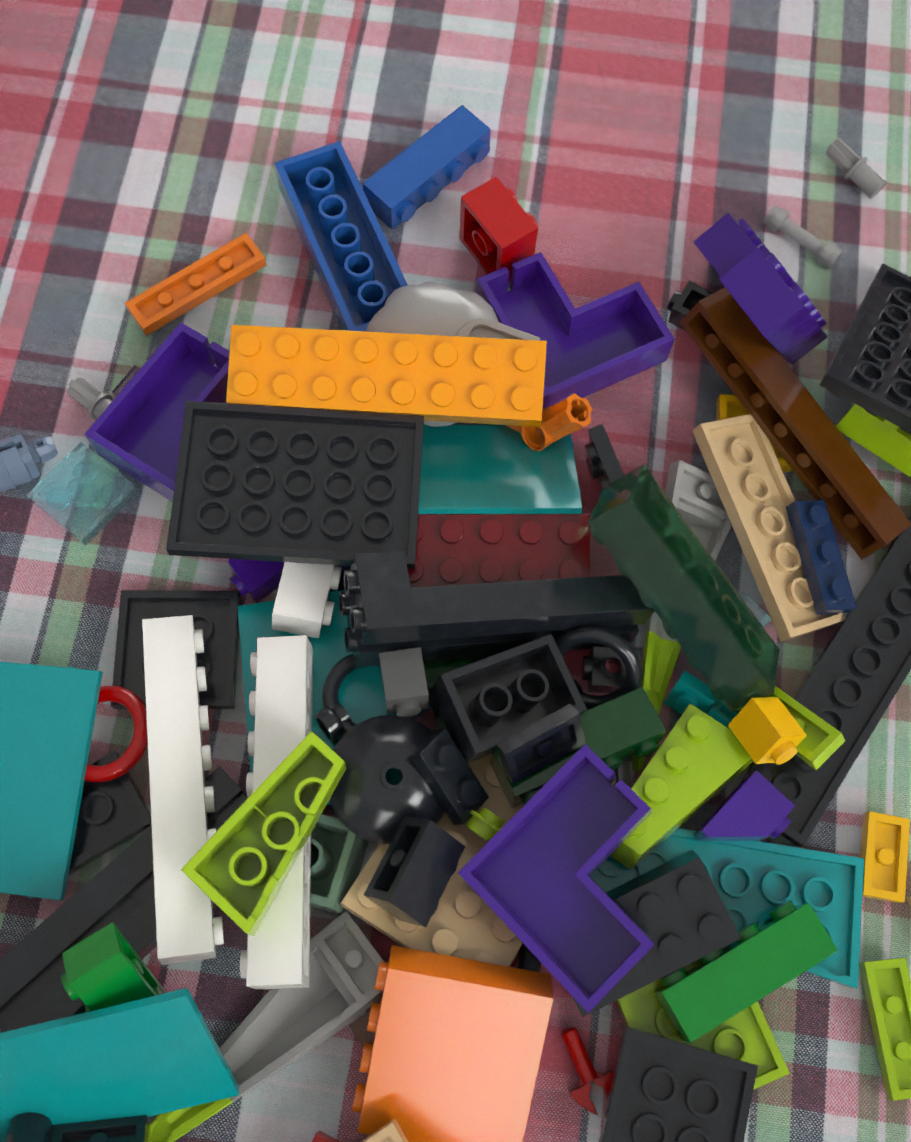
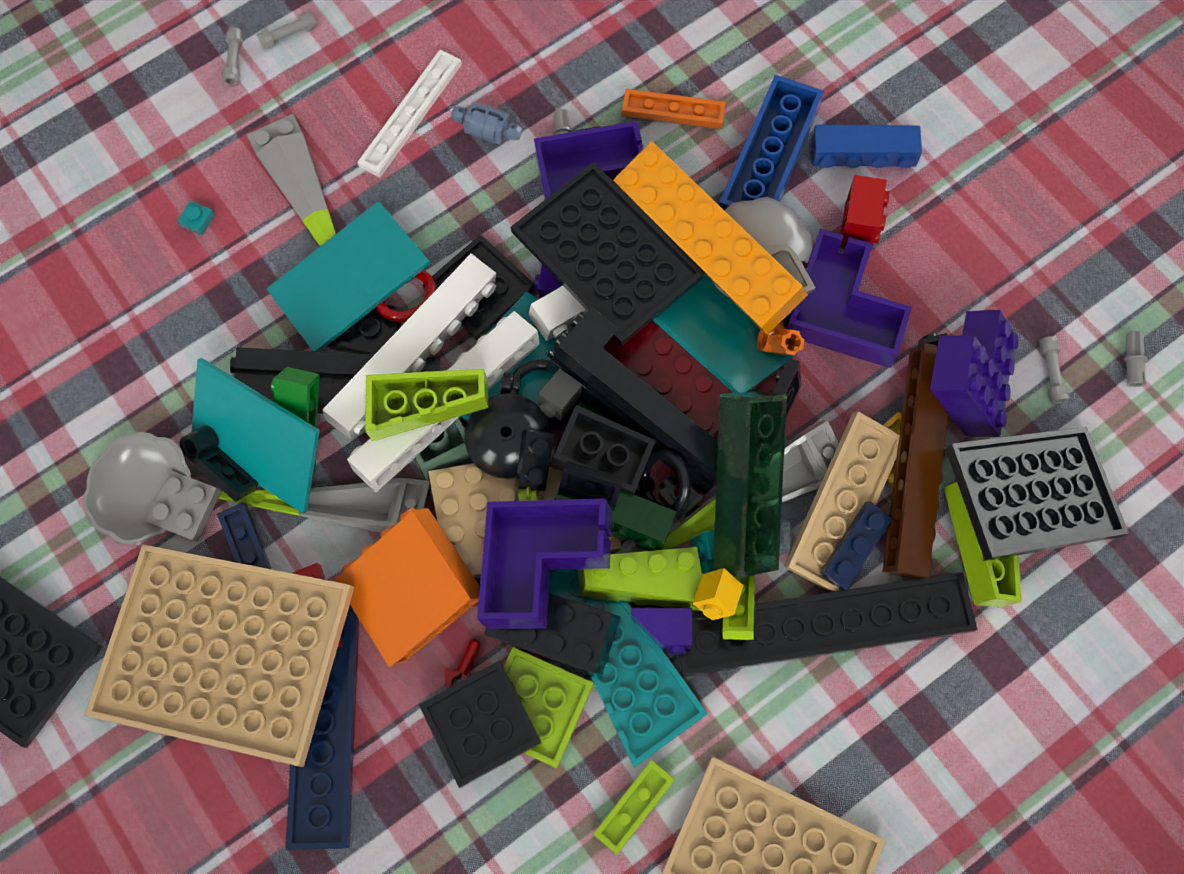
camera: 55 degrees right, 0 degrees up
(83, 493) = (510, 170): clear light blue plate -> none
(415, 871) = (472, 485): black brick -> none
(744, 970) = (582, 695): green brick -> none
(885, 856) = (720, 725): yellow plate -> none

